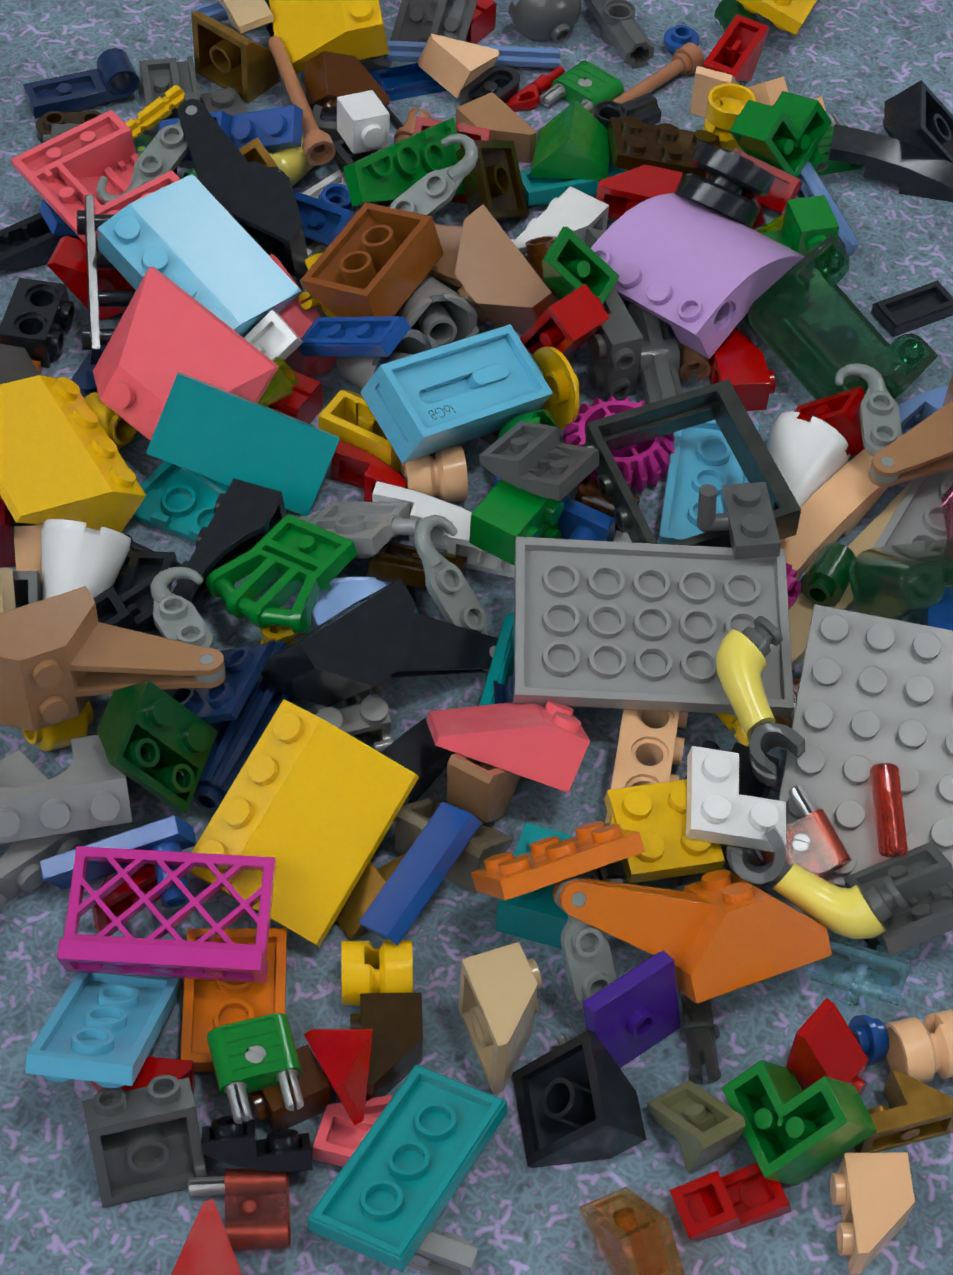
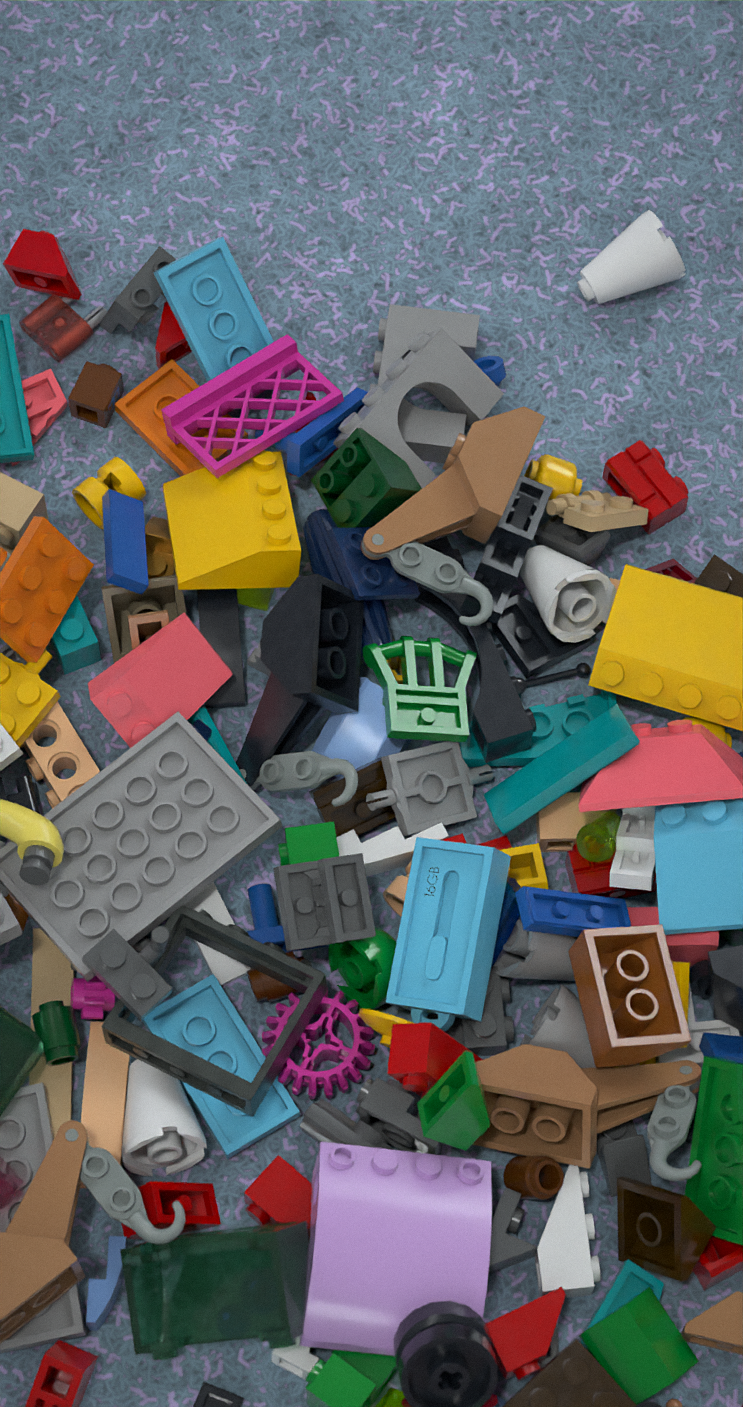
camera: 140 degrees right, 15 degrees up
(238, 1146) = (89, 341): black slope -> none
(254, 1058) = (120, 371): green piece -> none
(346, 1061) = (71, 408): red slope -> none
(395, 1037) = (65, 459): dark brown slope -> none

